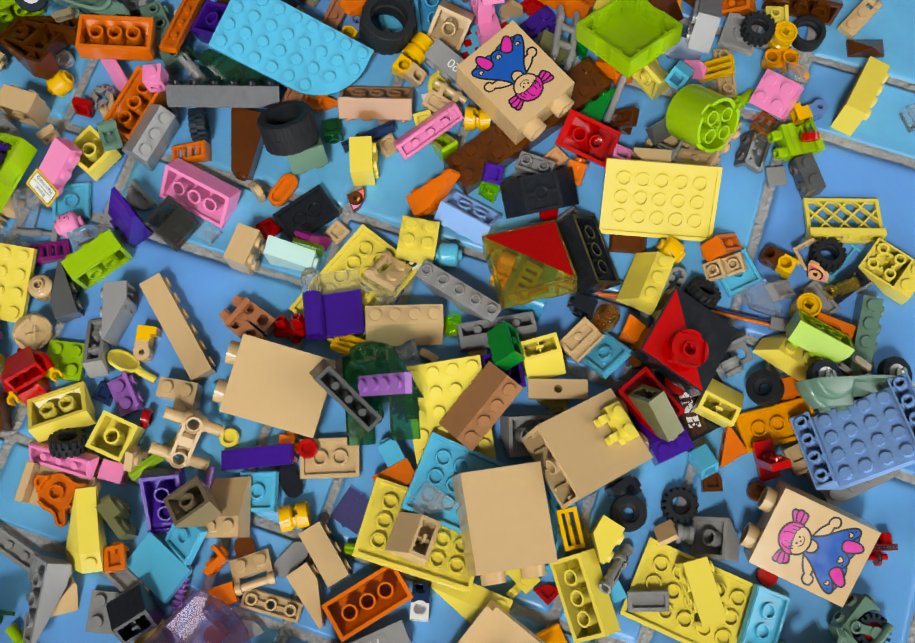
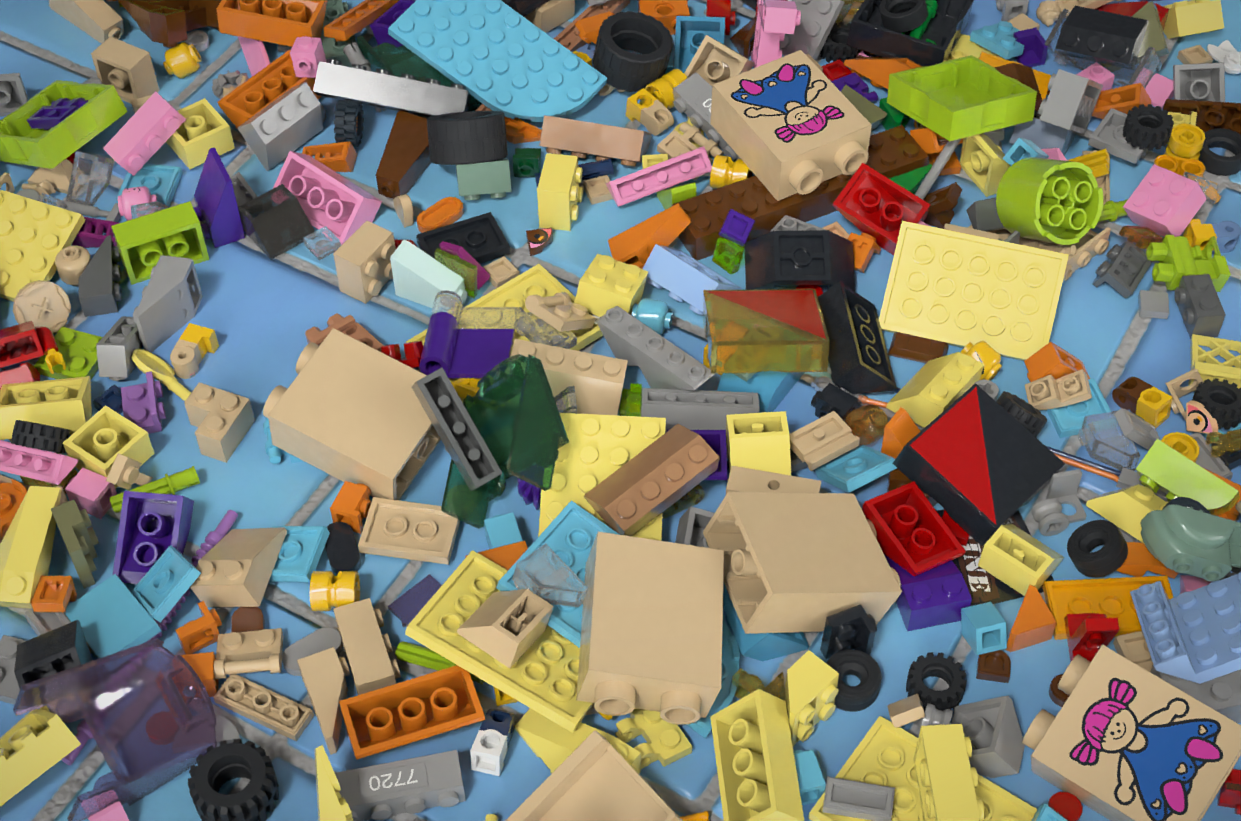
camera: 10 degrees right, 25 degrees down
(42, 187) = (118, 151): sticker -> none
(83, 107) = (202, 87): red tile -> none
(109, 135) = (227, 105): sand green bracket -> none
(146, 418) = (161, 436): red tile -> none
(177, 328) = (242, 337): tan brick -> none
(186, 439) = (209, 460): tan piece -> none
(192, 505) = (192, 533): dark tan slope -> none
(230, 438) = (271, 484): light yellow tile -> none
(257, 457) = (304, 504): dark purple tile -> none
(307, 448) = (381, 508): red tile -> none
(385, 384) = (515, 397): medium lavender plate -> none
(505, 346) = (706, 412): green brick -> none
(546, 592) = (697, 769): red tile -> none
(558, 43) = (860, 100): light grey piece -> none
(578, 528) = (752, 646): yellow tile -> none
(619, 423) = (854, 531): light yellow plate -> none
(619, 562) = (804, 743): light grey pin -> none
(657, 411) = (919, 532): olive slope -> none
(677, 349) = (970, 470): red plate -> none
(810, 136) = (1207, 252): red tile -> none

